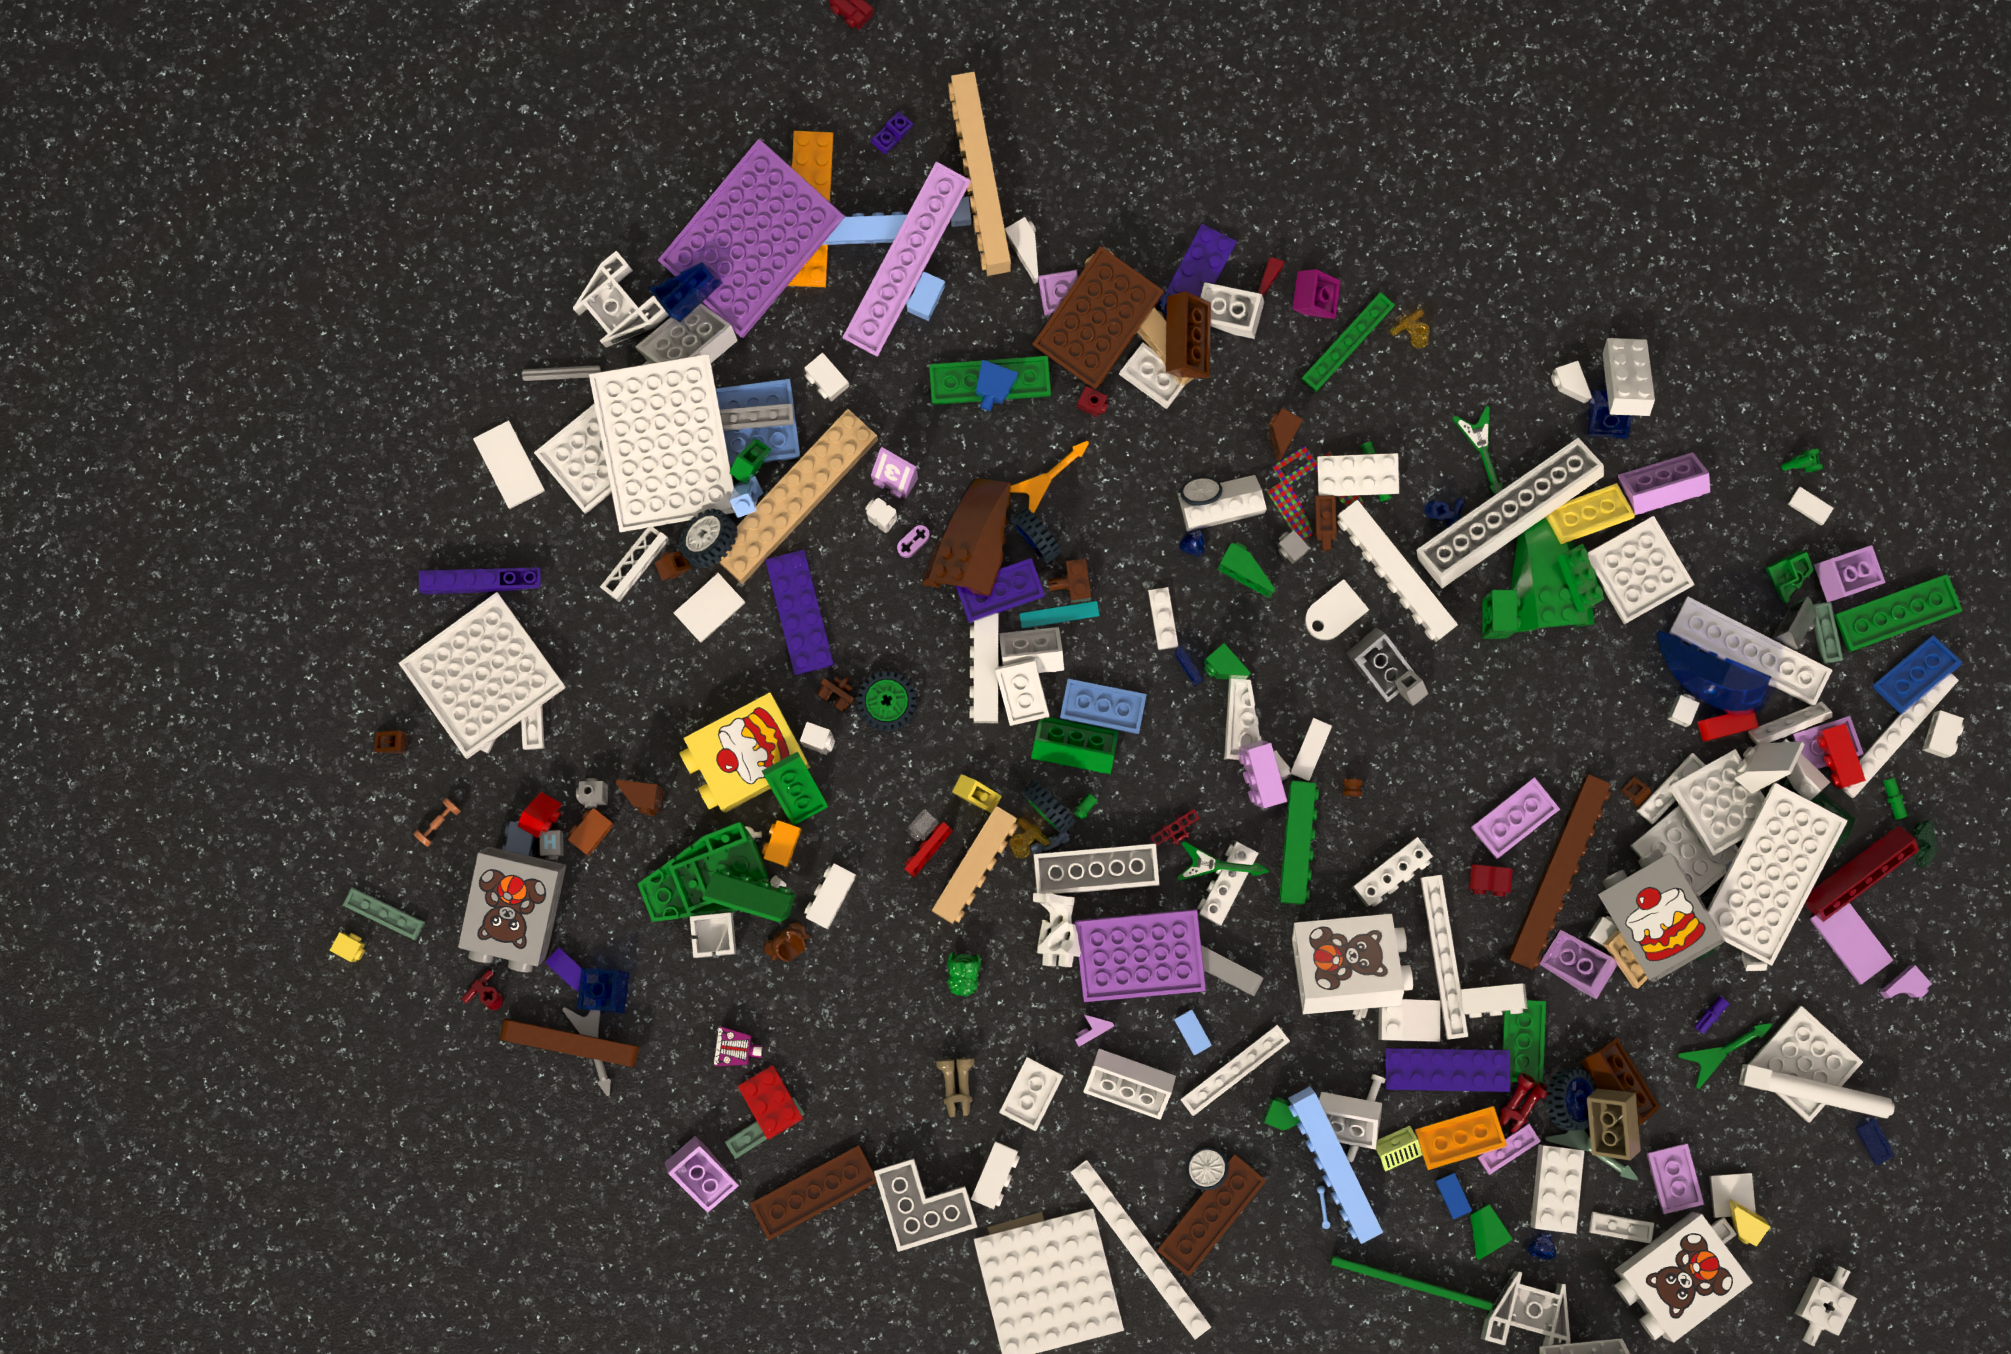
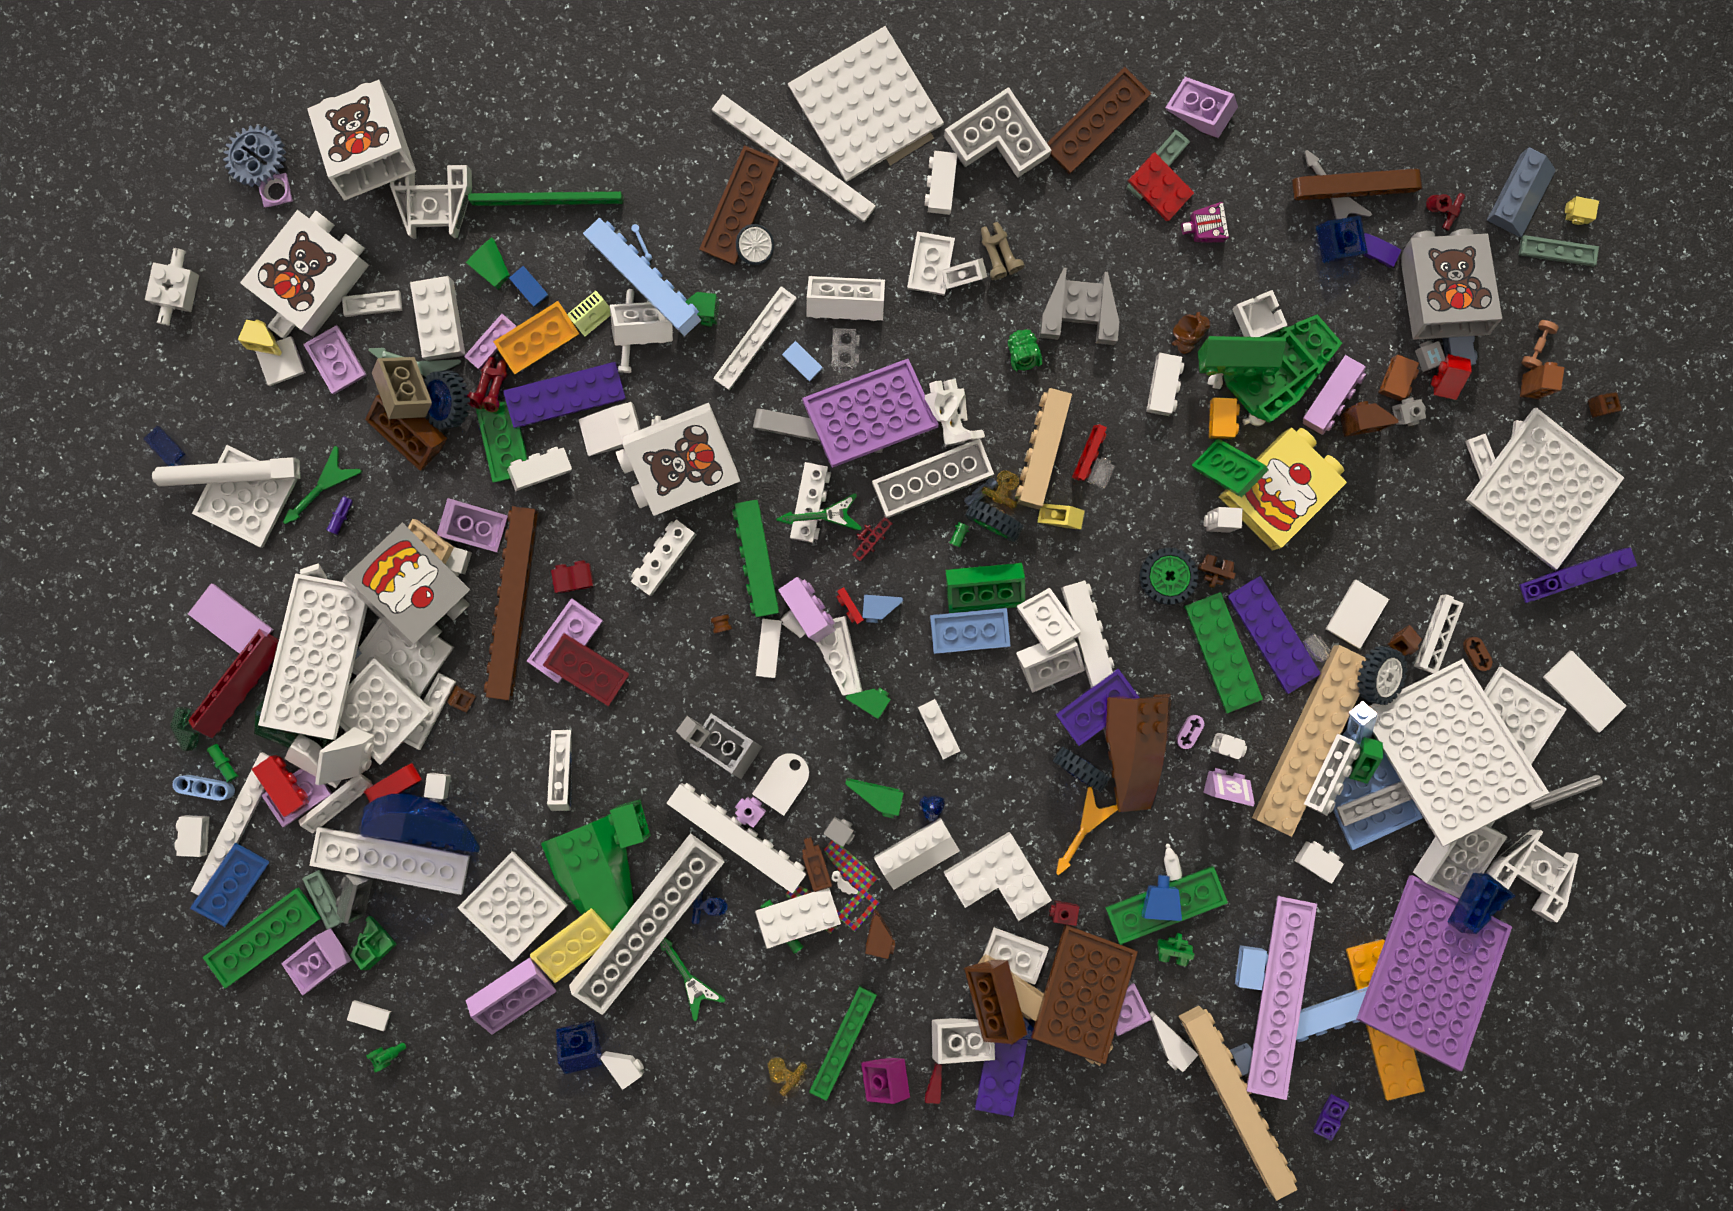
camera: 165 degrees right, 5 degrees up
(401, 984) = (1522, 192): none -> sand blue slope
(451, 782) = (1542, 381): none -> dark orange brick
(597, 533) = (1474, 656): none -> reddish brown beam
(662, 833) = (1334, 394): none -> lavender brick
(761, 586) = (1316, 648): none -> clear brick
(789, 455) = (1332, 775): none -> white brick
(855, 609) = (1223, 652): none -> green plate
(888, 1004) = (1081, 304): none -> light grey wedge
(971, 417) = (1172, 864): none -> white piece
(993, 336) = (1175, 947): none -> green hips
(1000, 1071) = (964, 273): none -> white slope
(1059, 614) = (1034, 704): teal sticker -> none
(1075, 581) = (1031, 738): reddish brown brick -> none
(1098, 1027) = (889, 338): lavender slope -> none
(1143, 465) = (1001, 867): none -> white brick
(1152, 1032) = (840, 349): none -> clear brick
(1188, 666) = (902, 690): clear blue tile -> none
(1188, 757) = (878, 607): none -> medium blue slope
(1201, 491) = (939, 858): white wheel -> none
(1215, 758) = (853, 613): none -> red plate
(1304, 494) = (843, 885): none -> white piece
(1379, 586) = (755, 806): none -> lavender brick
(1444, 957) = (595, 495): white plate -> none
(1502, 782) = (585, 669): none -> dark red plate
(1542, 1247) = (437, 264): clear blue brick -> none
(1555, 689) = (560, 771): none -> white slope
(1580, 577) = (564, 881): green plate -> none
(1628, 377) = (570, 1087): white brick -> none
(1909, 981) = (169, 598): lavender arch -> none
(1929, 779) = (195, 783): none -> light blue beam

